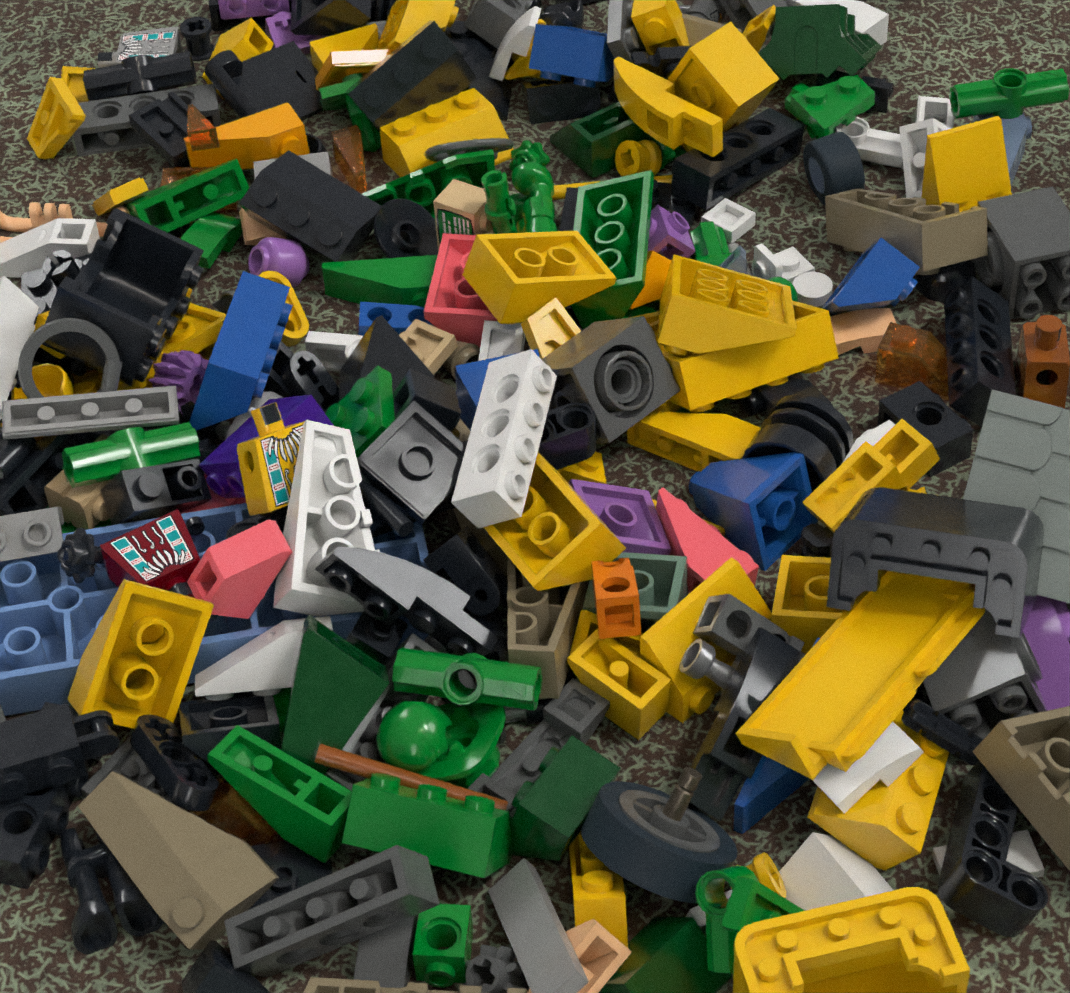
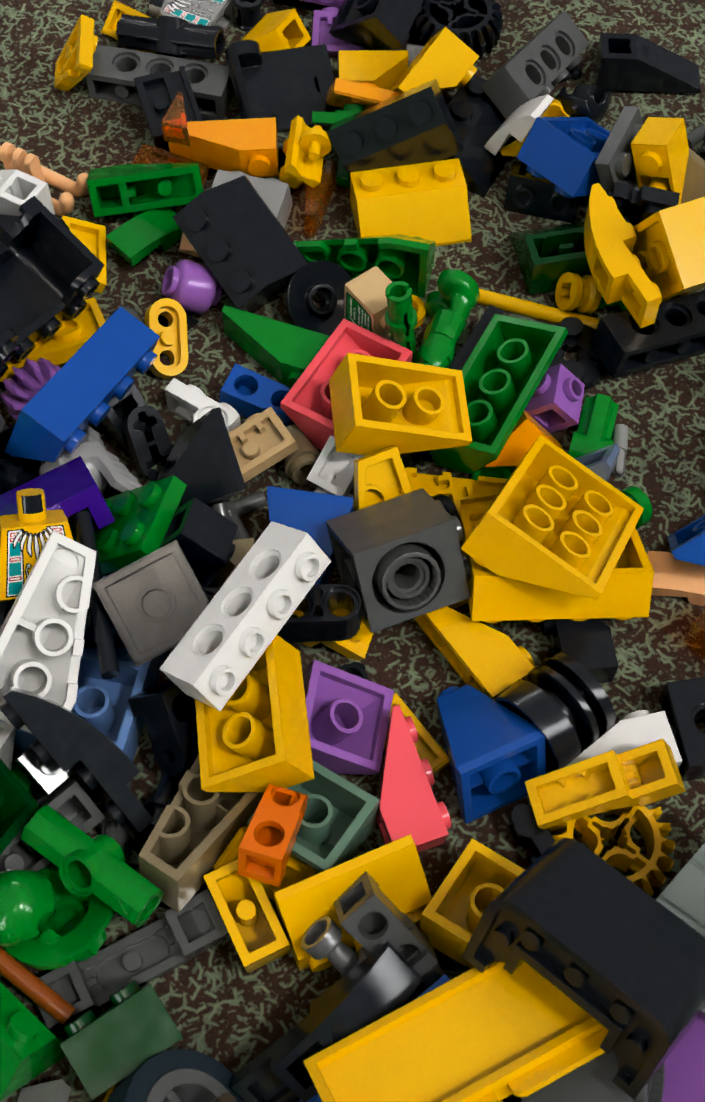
camera: 20 degrees right, 15 degrees up
(120, 195) = (90, 161): yellow tile -> none
(329, 123) = (304, 154): none -> yellow hips
(446, 150) = (416, 228): dark grey piece -> none
(528, 153) = (476, 256): green plant -> none
(732, 218) = (632, 395): white plate -> none
(783, 264) = (655, 472): white bracket -> none
(813, 288) = (674, 507): white tile -> none

